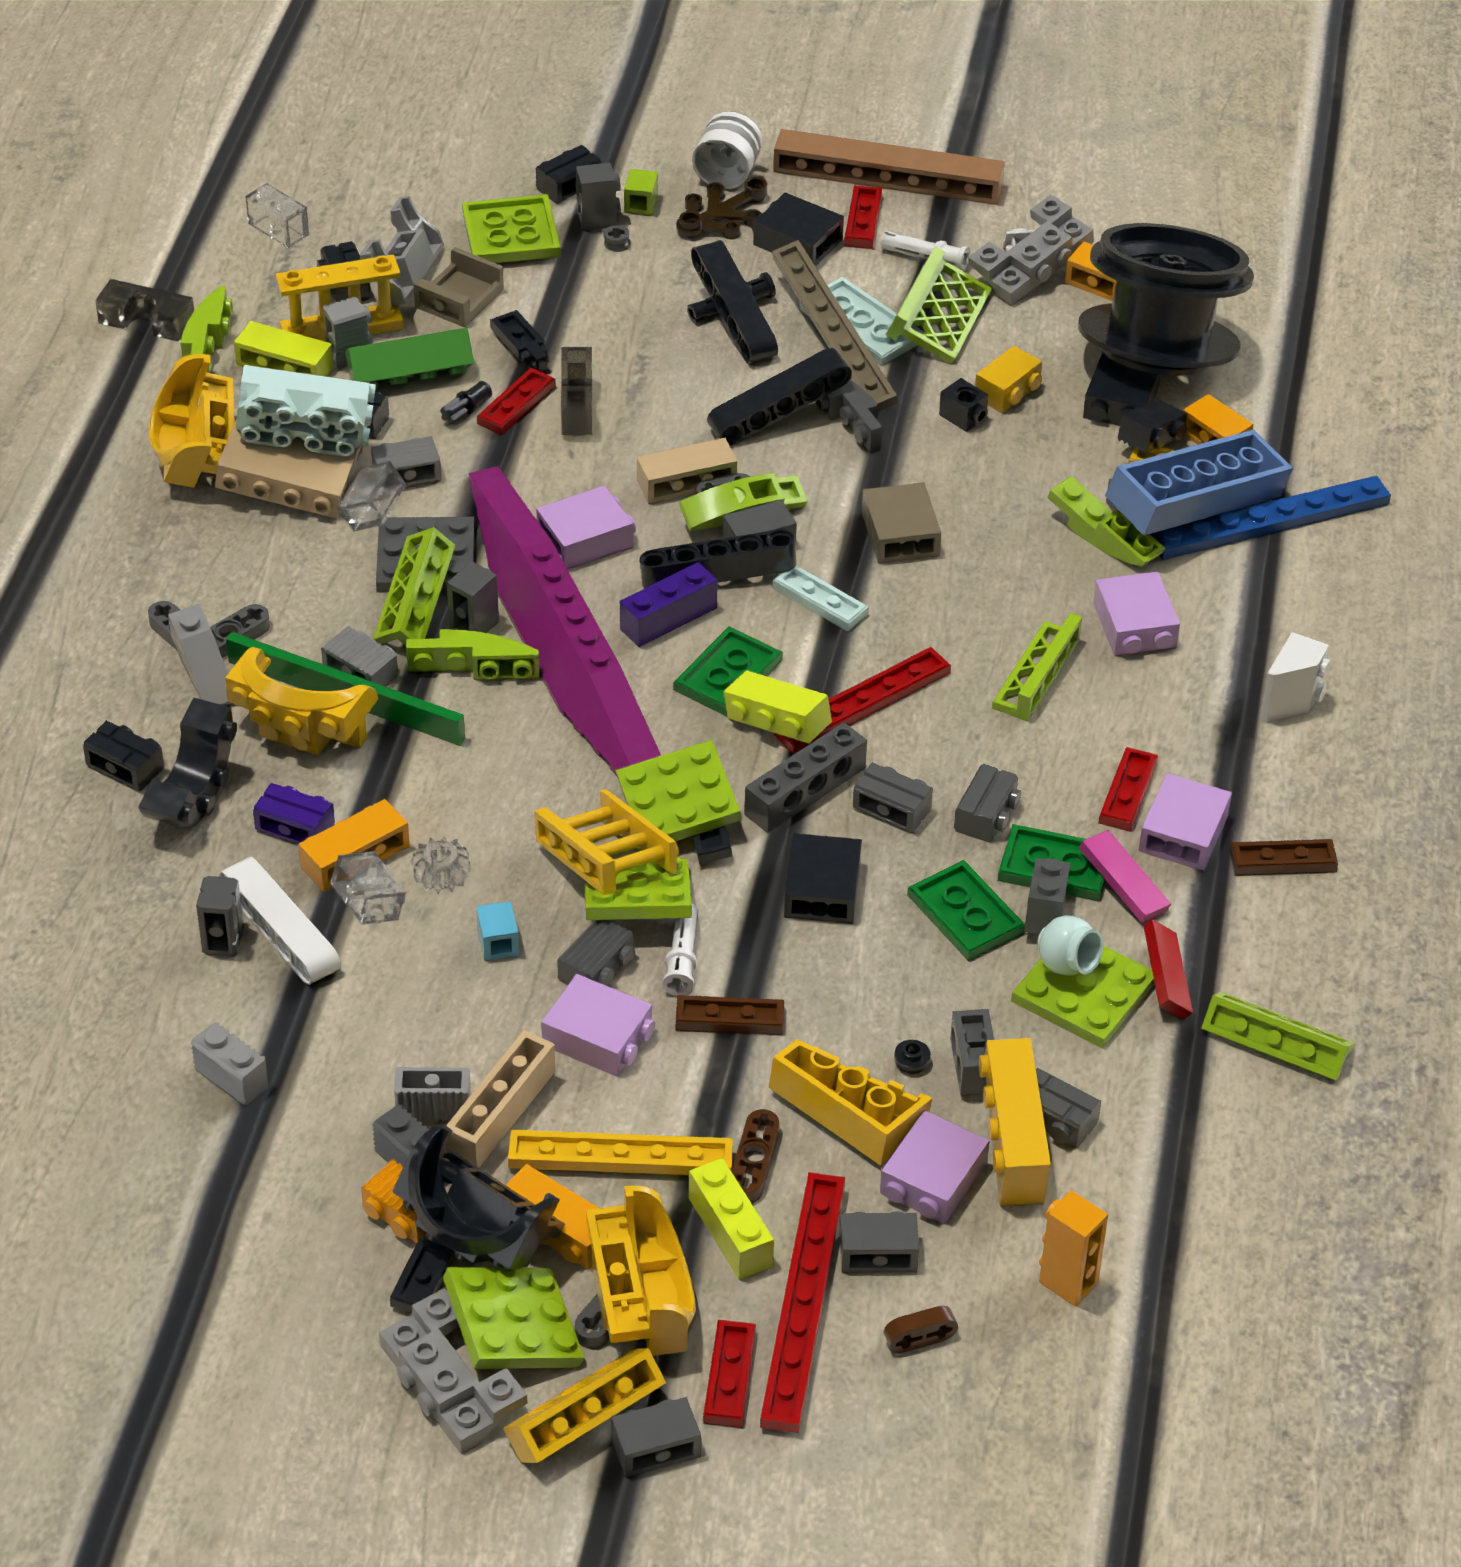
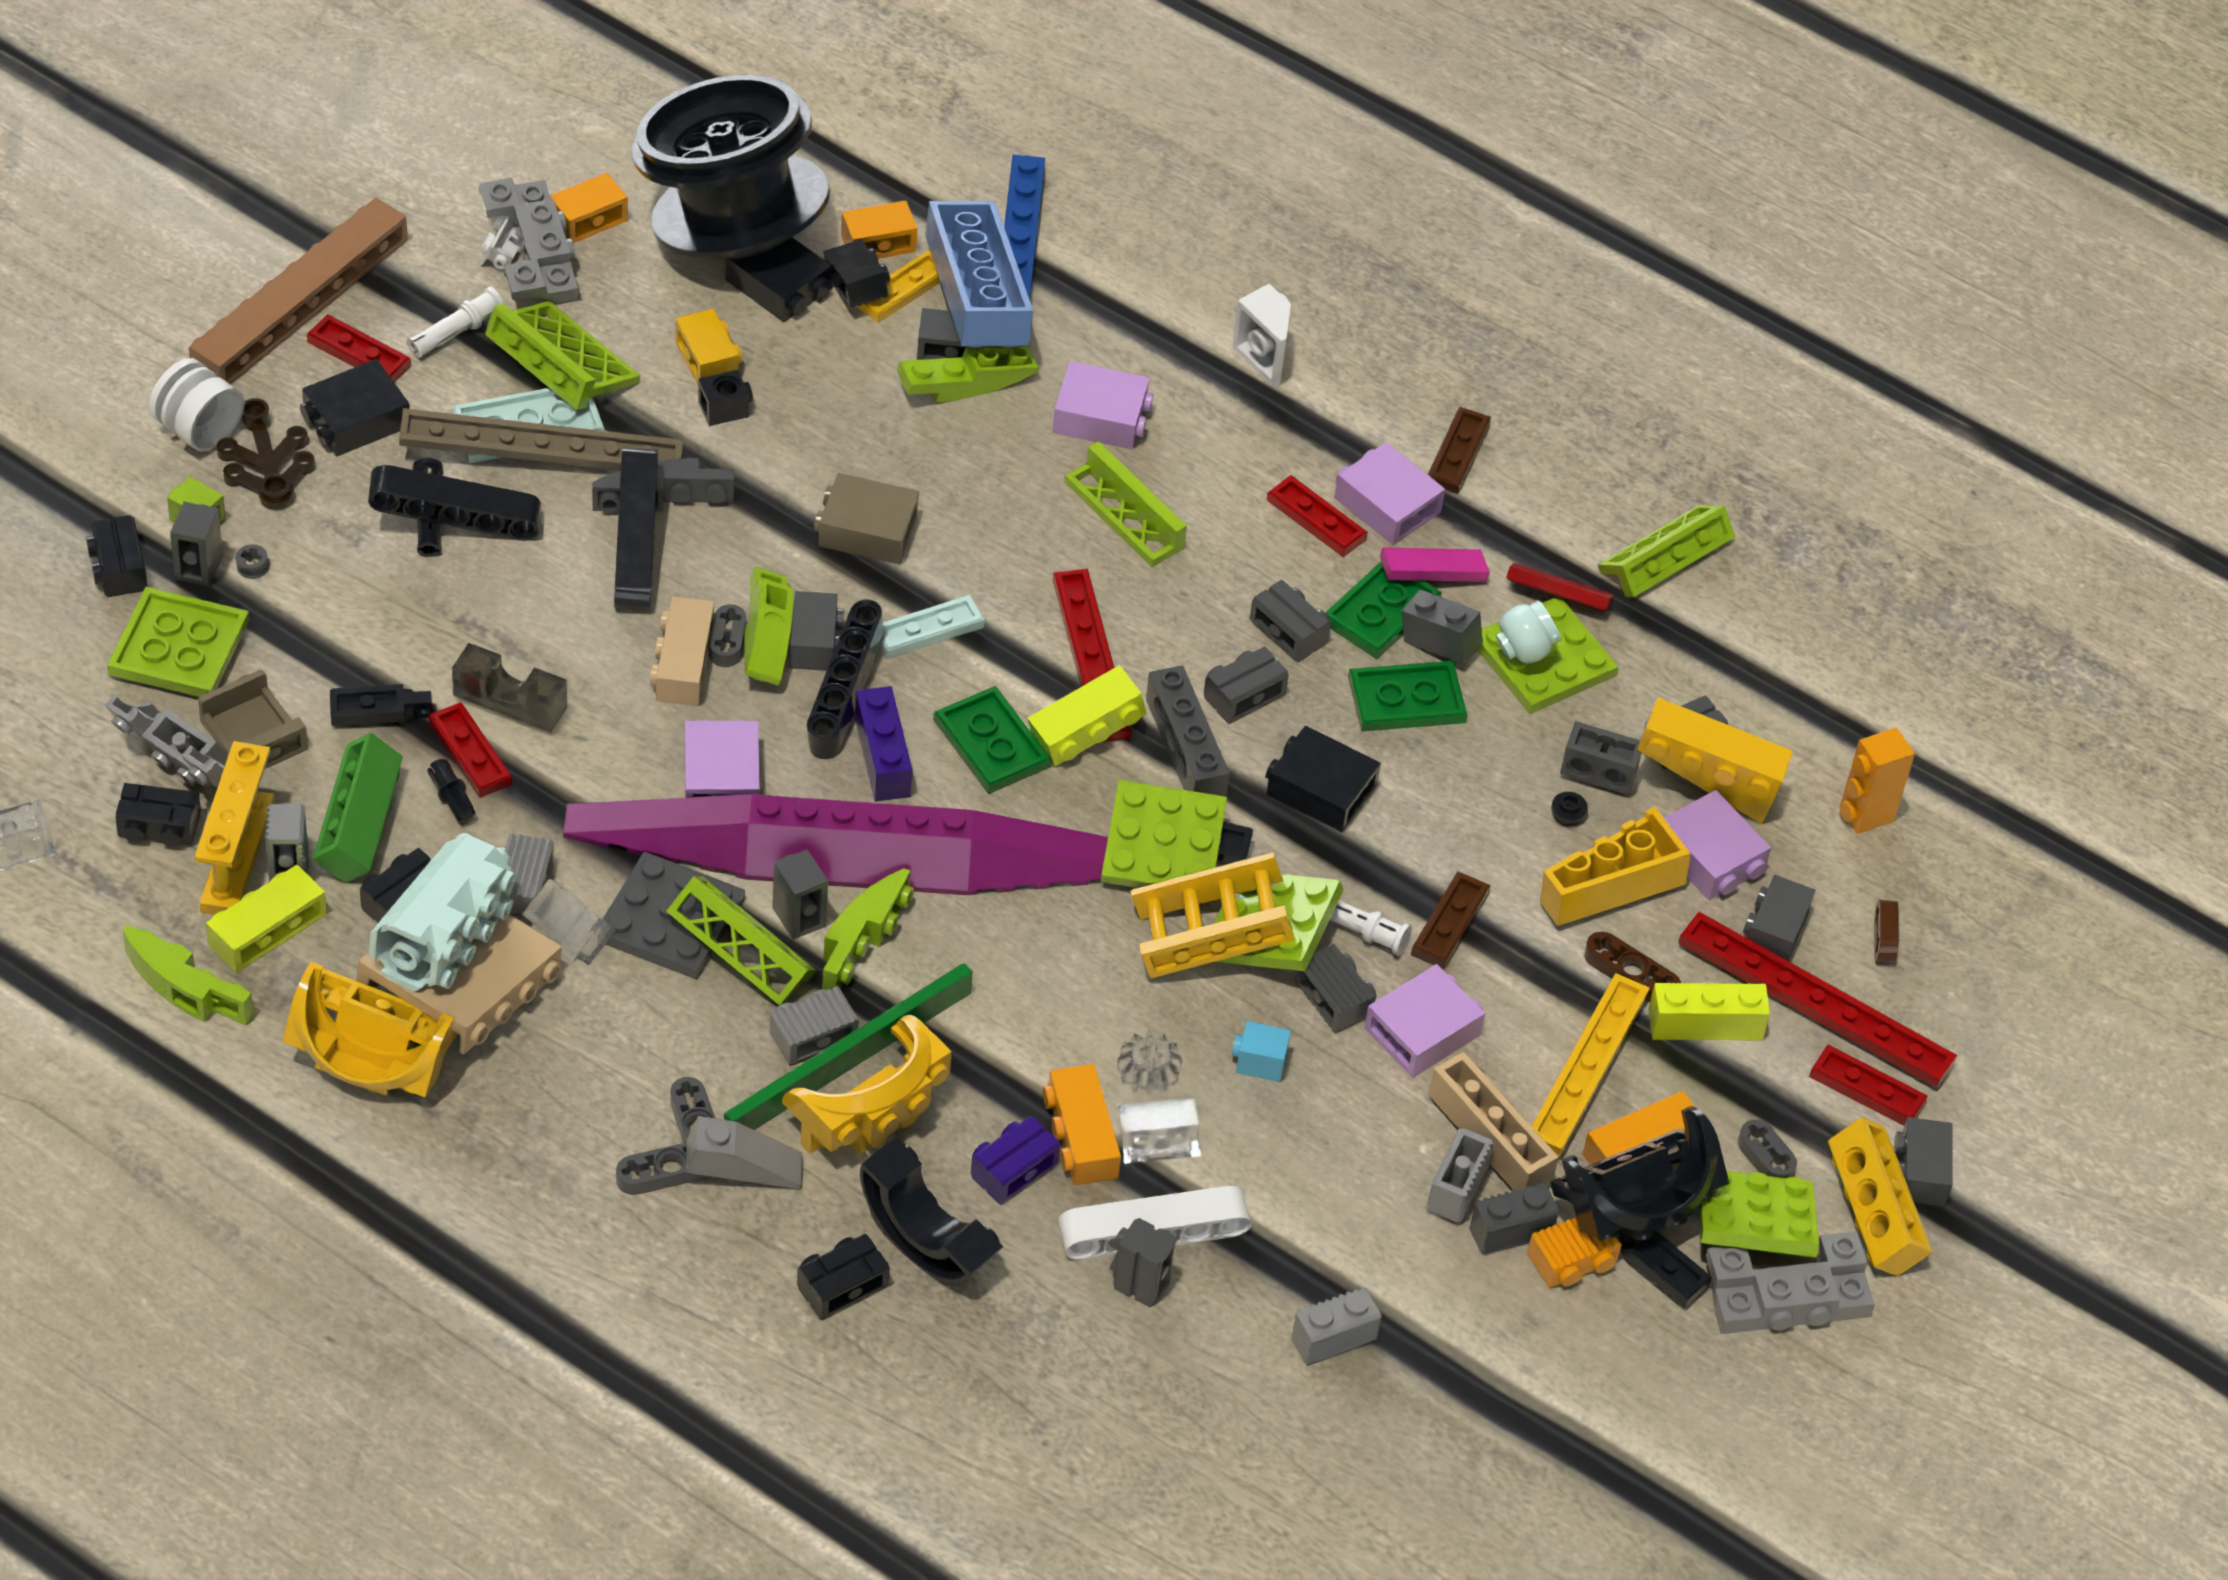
camera: 70 degrees left, 5 degrees up
(125, 302) = (118, 996): clear smoke arch -> none
(641, 1273) = (1767, 1102): yellow piece -> none

